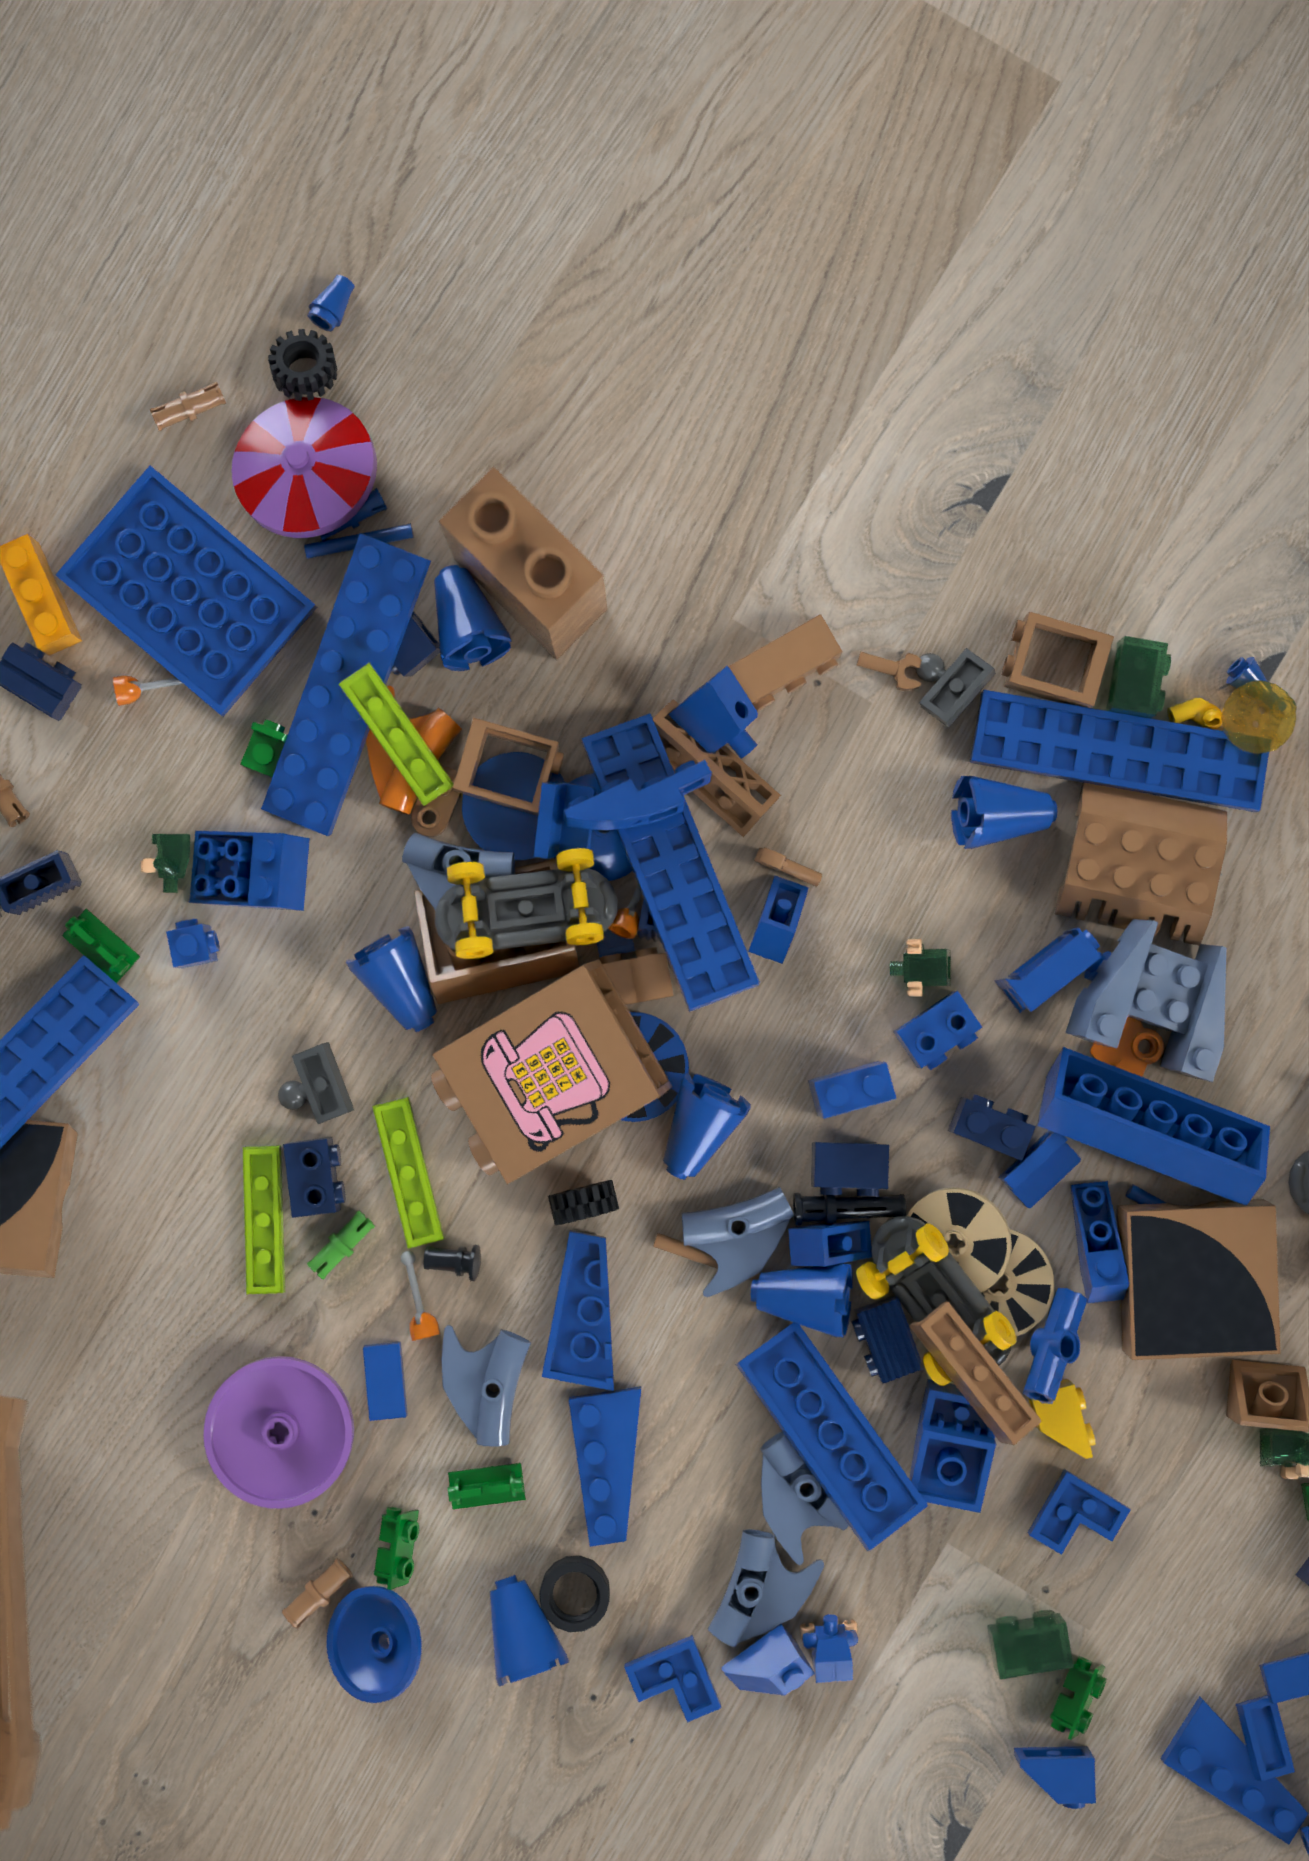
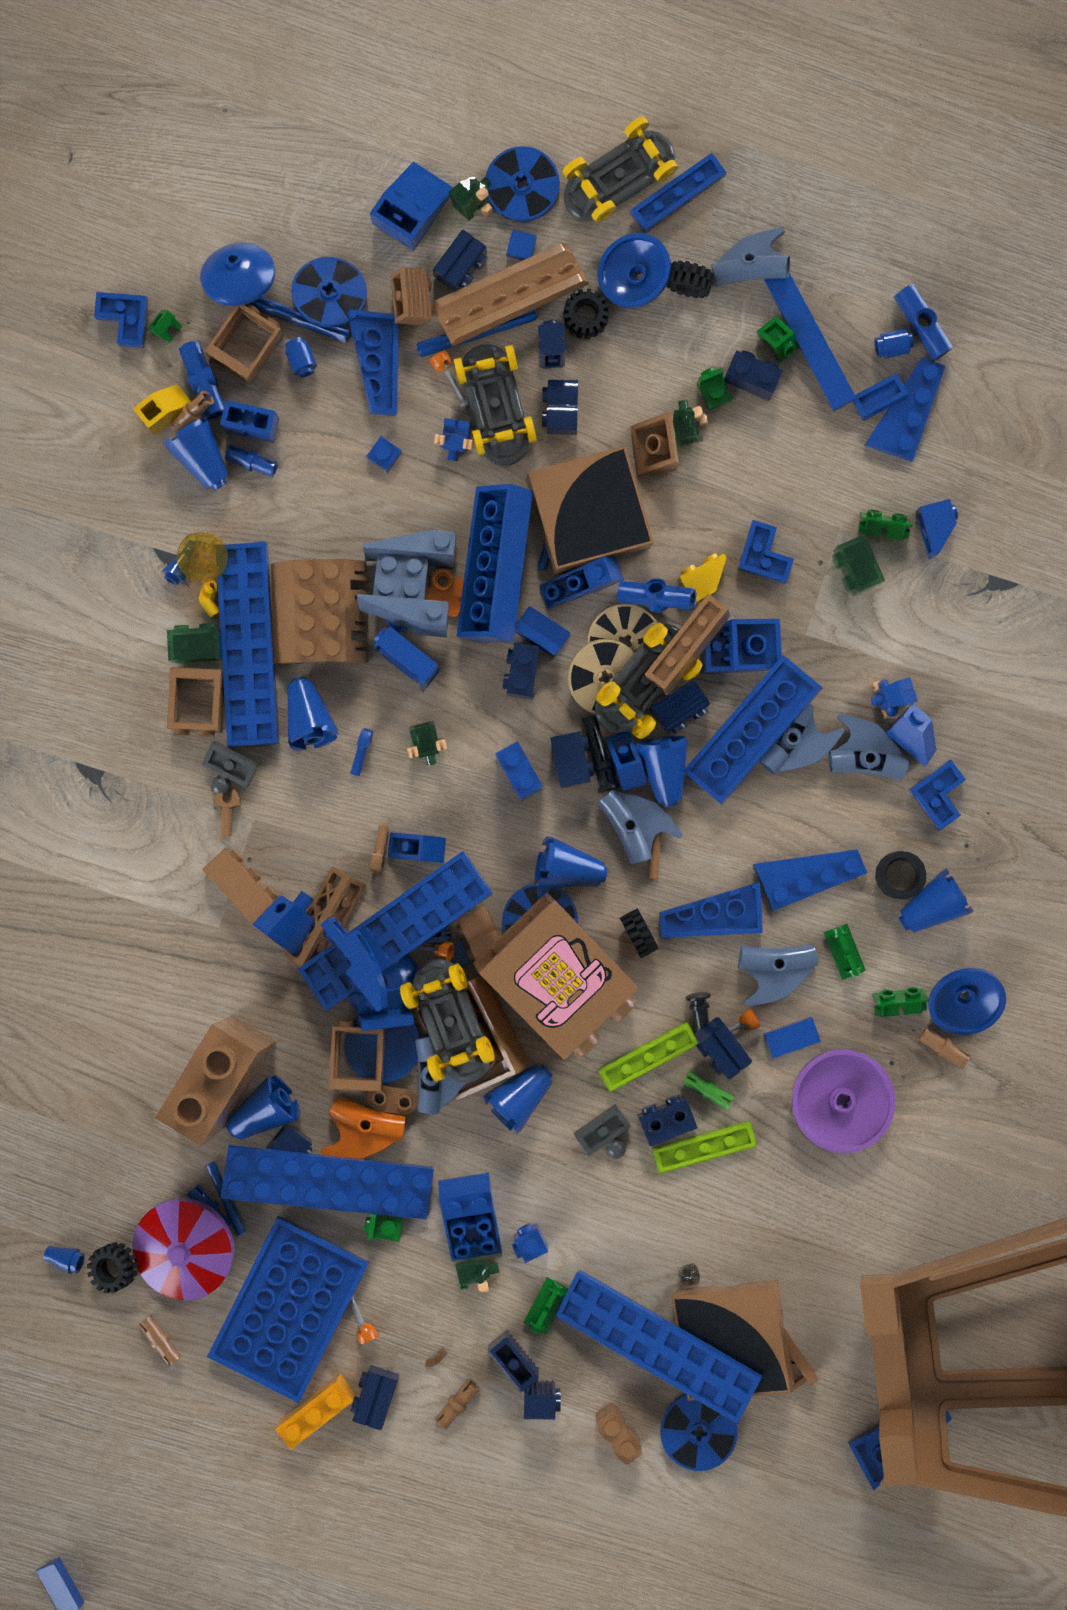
camera: 100 degrees left, 0 degrees up
(67, 777) = (436, 1360): none -> medium nougat leg
(93, 1155) = (689, 1274): none -> clear smoke hinge
(393, 1280) = (722, 1048): none -> dark blue brick
(396, 734) = (352, 1138): lime tile -> none
(938, 1030) = (466, 722): blue brick -> none
(941, 879) = (362, 745): none -> blue bar

